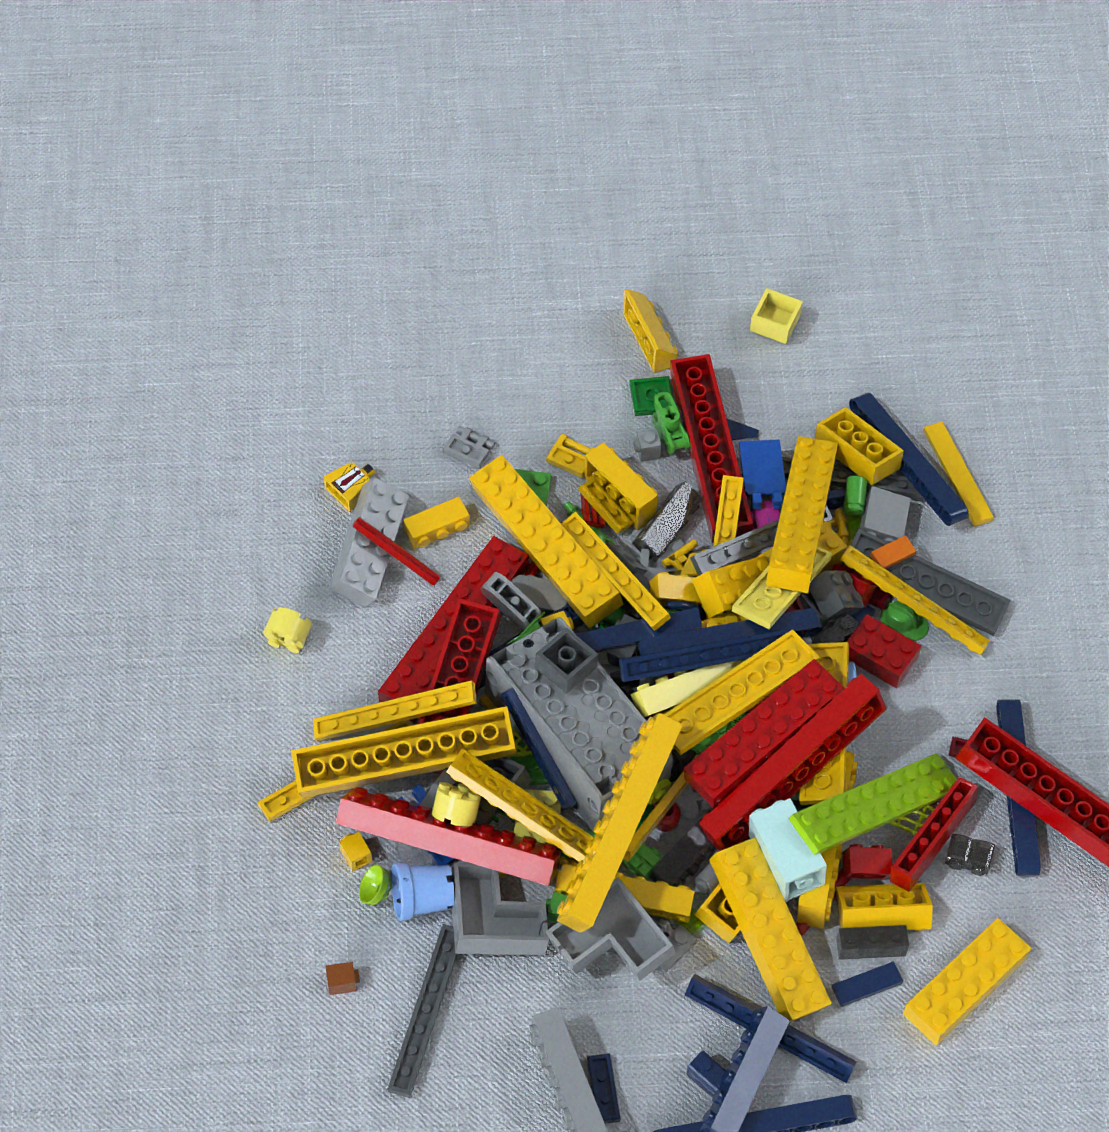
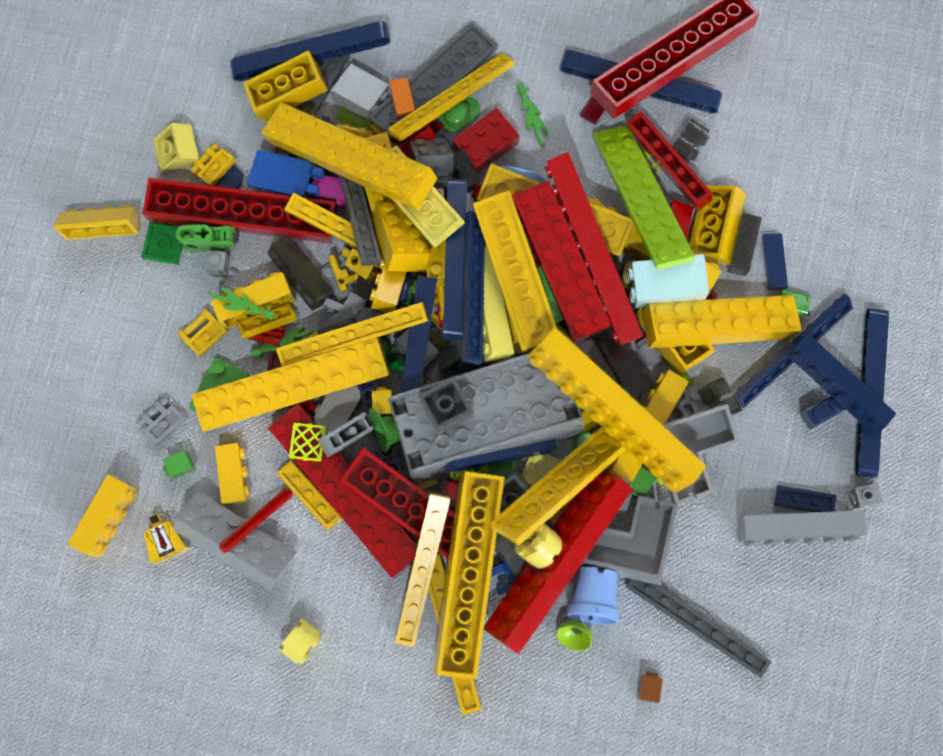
camera: 65 degrees left, 20 degrees up
(355, 423) = (103, 516): none -> yellow brick
(355, 851) = (537, 643): yellow brick -> none
(429, 474) = (178, 465): none -> bright green brick
(437, 597) = (309, 495): none -> yellow tile
(486, 560) = (293, 440): none -> neon yellow window
(608, 466) = (237, 304): none -> bright green piece
(688, 954) = (714, 391): none -> clear smoke piece
(750, 411) = (216, 167): none -> yellow plate
(755, 374) = (175, 147): none -> light yellow slope
(776, 316) = (123, 107): light yellow piece -> none
(830, 1021) = (802, 301): none -> bright green piece
(855, 495) = (333, 107): bright green piece -> none
(929, 689) = (531, 118): none -> bright green piece
(958, 473) = (332, 17): yellow tile -> none
(966, 981) = (798, 184): yellow brick -> none

